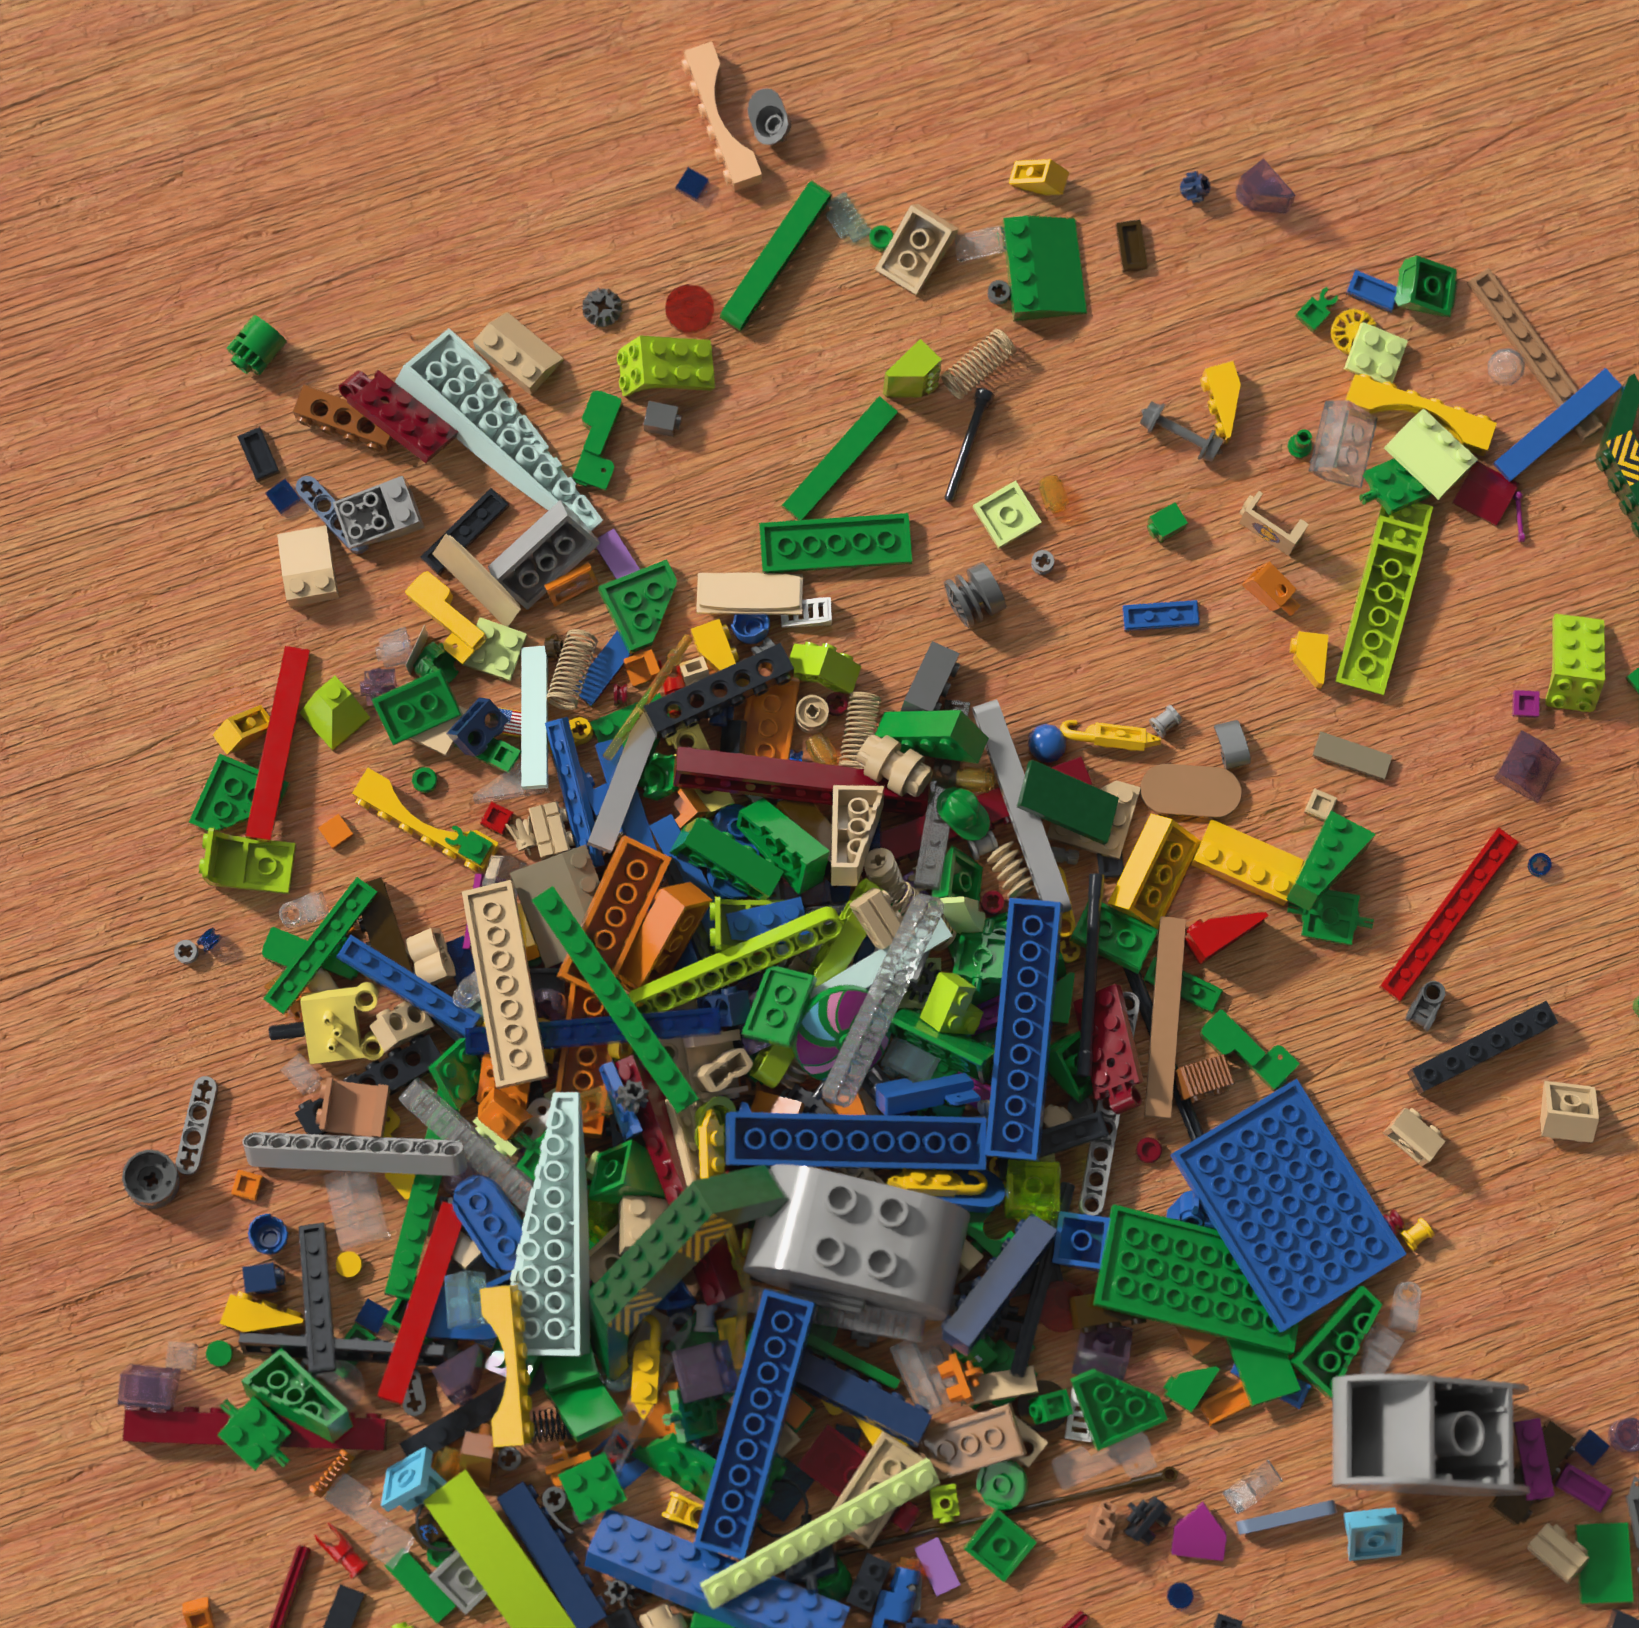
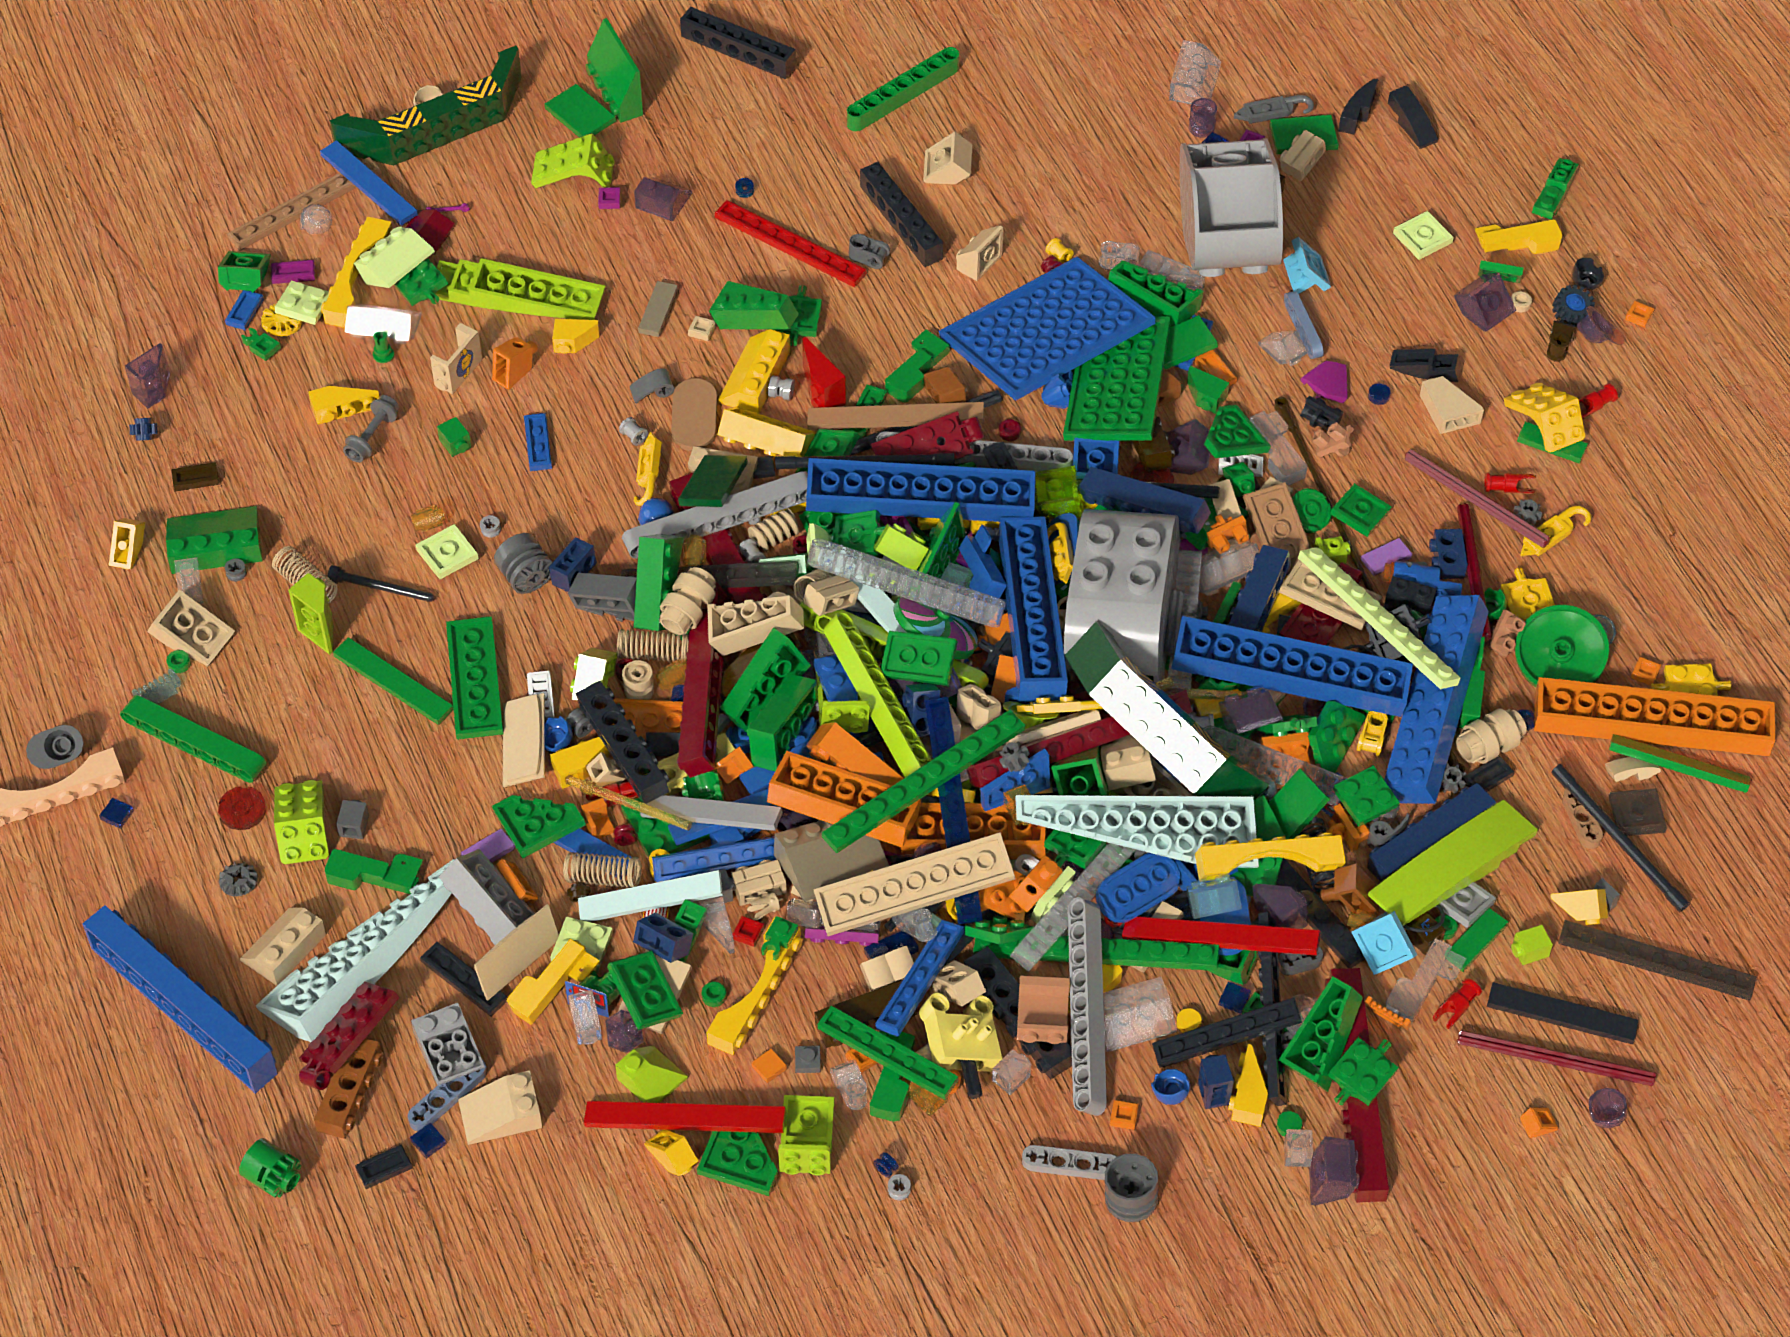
camera: 90 degrees left, 25 degrees down
(340, 870) = (807, 1059): none -> dark grey plate
(453, 253) = (181, 998): none -> blue brick
(548, 795) = (727, 886): none -> dark grey plate
(647, 1369) = (1263, 756): yellow plate -> none
(963, 813) = (724, 555): green piece -> none
(973, 648) = (574, 559): none -> dark blue brick
(1220, 890) = (781, 387): none -> light grey wheel
(1428, 343) = (295, 270): none -> magenta tile

